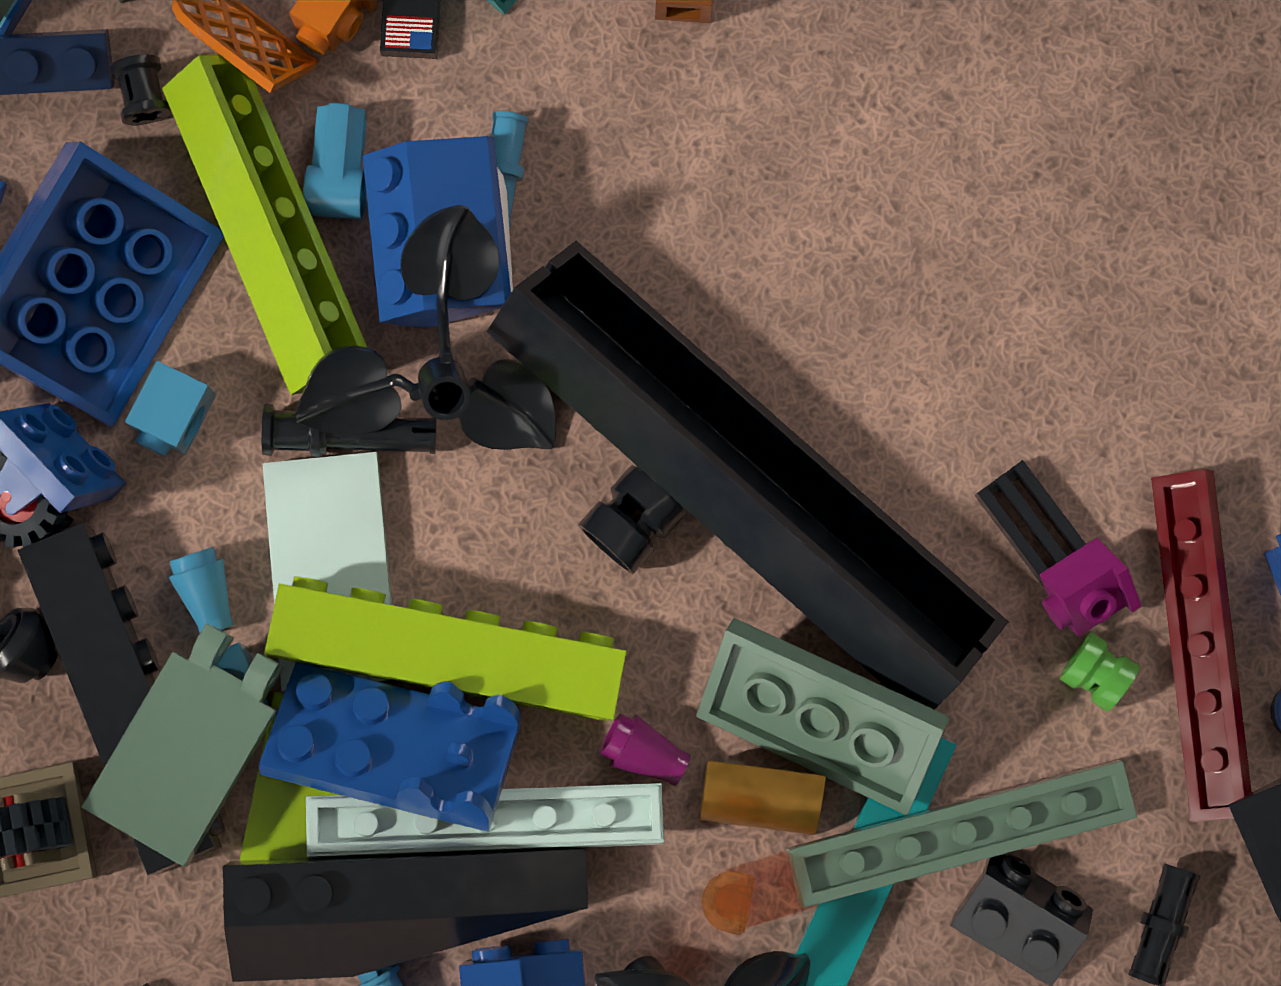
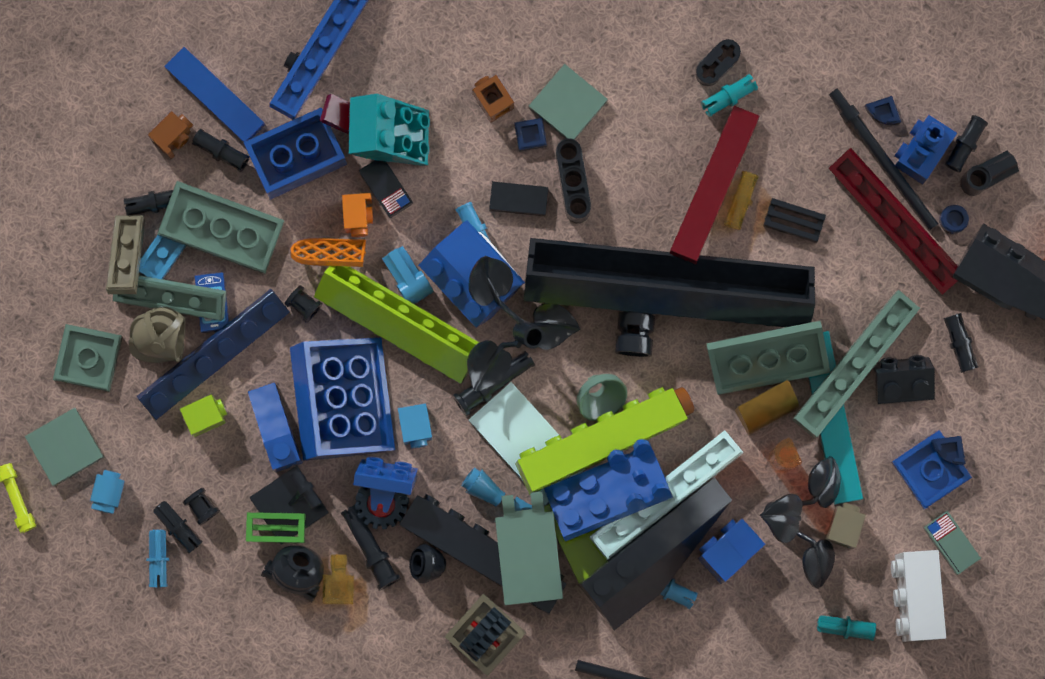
camera: 35 degrees left, 0 degrees up
(511, 593) = (608, 398): none -> sand green piece
(609, 169) = (518, 198): none -> black tile
(631, 686) = (685, 400): none -> dark orange tile
(642, 750) = (706, 423): magenta cone -> none
(704, 81) = (530, 134): none -> dark blue tile
(721, 175) = (573, 167): none -> black beam
(801, 74) = (568, 103): none -> sand green tile
(940, 370) = (714, 185): none -> dark red tile
(968, 427) = (741, 200): none -> clear yellow pin
(1073, 244) = (729, 95): none -> teal pin
(1088, 588) = (835, 231): magenta brick -> none
(1096, 192) = (722, 67): none -> black beam
(1099, 672) = (864, 261): bright green wheel -> none
(1252, 417) = (850, 115): none -> black bar

